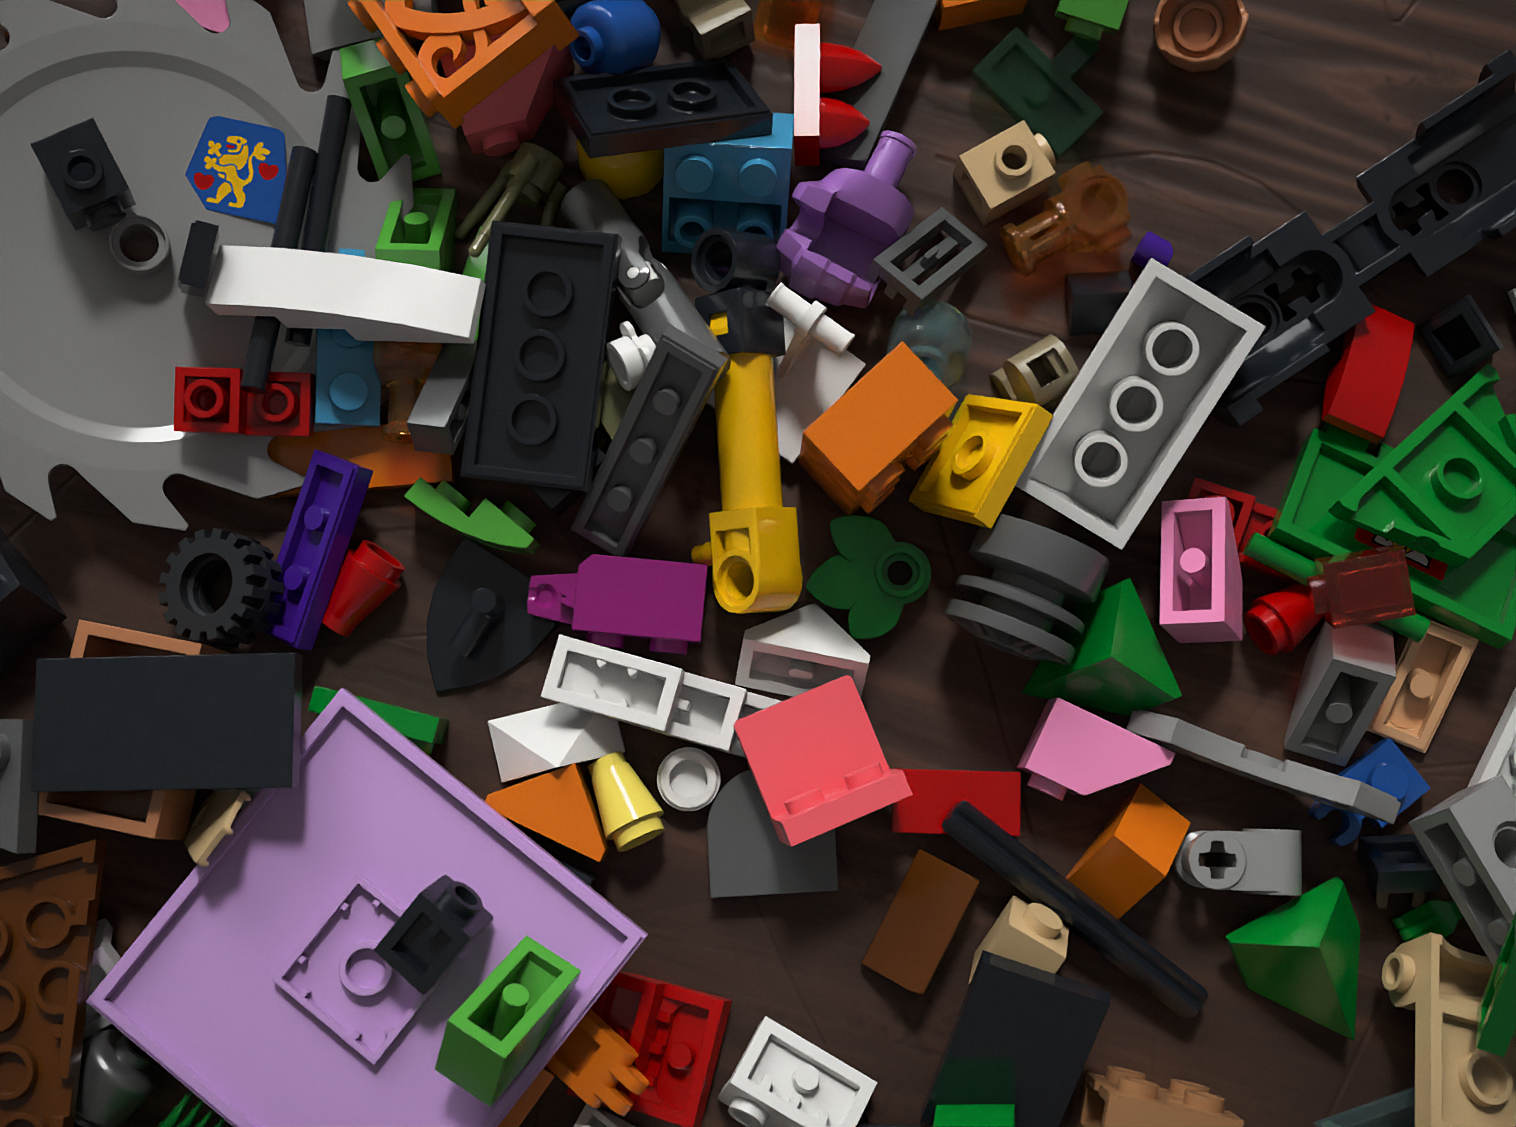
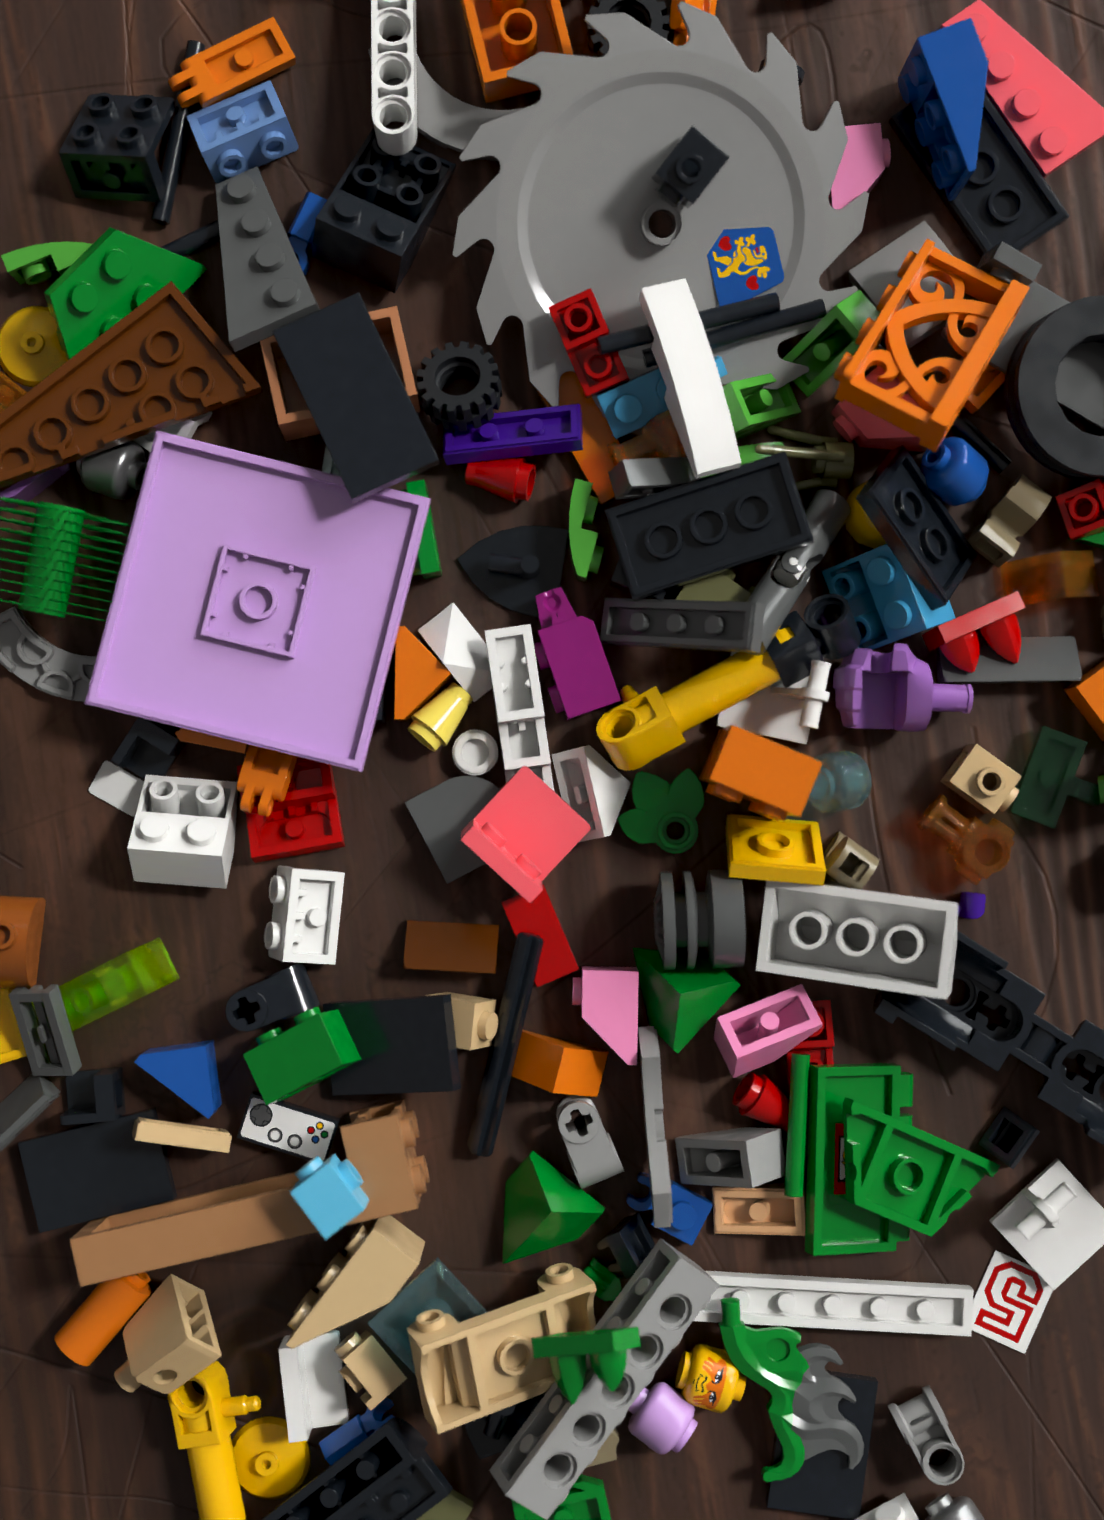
camera: 65 degrees right, 5 degrees up
(198, 258) = (669, 269): black tile -> none
(212, 823) = (305, 456): tan piece -> none
(433, 932) = (301, 634): black bracket -> none
(505, 1020) = (267, 706): bright green slope -> none
(629, 356) = (735, 586): white plate -> none
(903, 283) = (870, 745): dark grey tile -> none
(1094, 300) = (922, 879): black slope -> none
(1361, 587) = (801, 1139): clear red brick -> none
(1369, 376) = (954, 1087): red slope -> none

